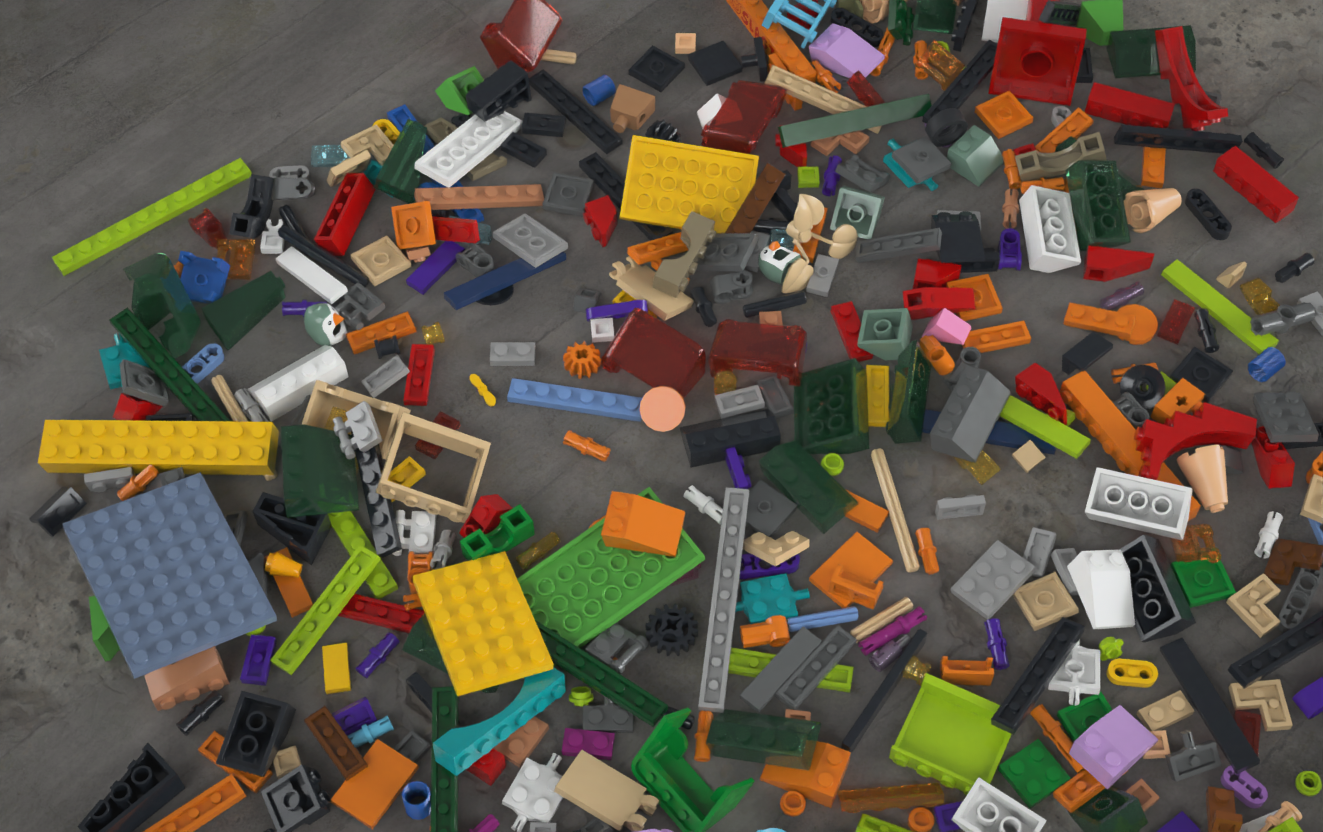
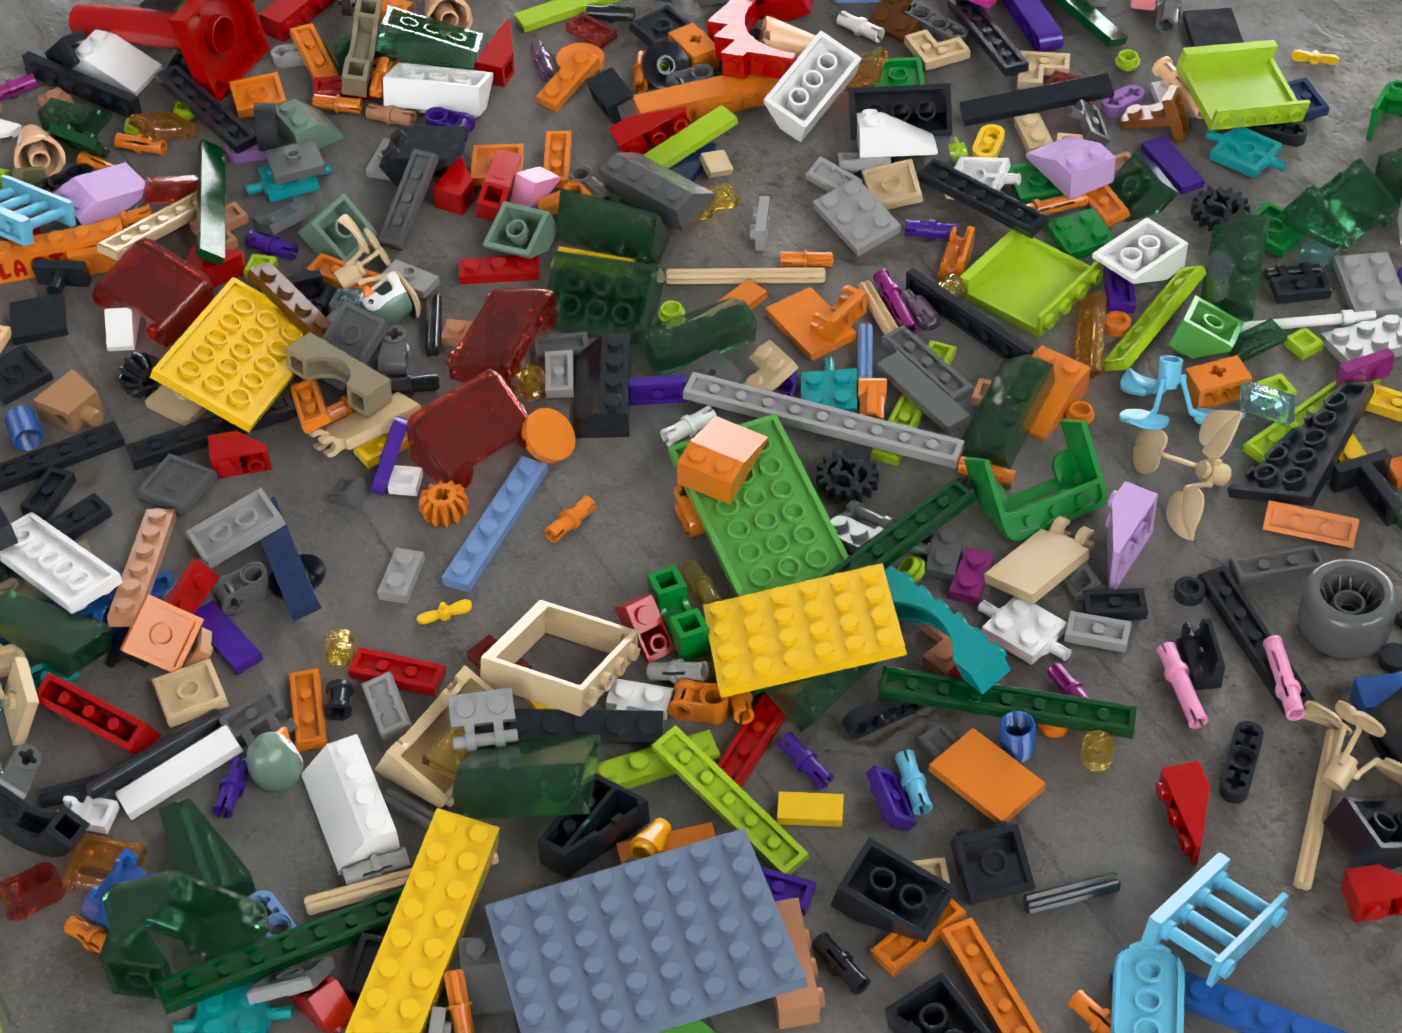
camera: 75 degrees left, 10 degrees down
(335, 743) = (929, 801): reddish brown tile -> none

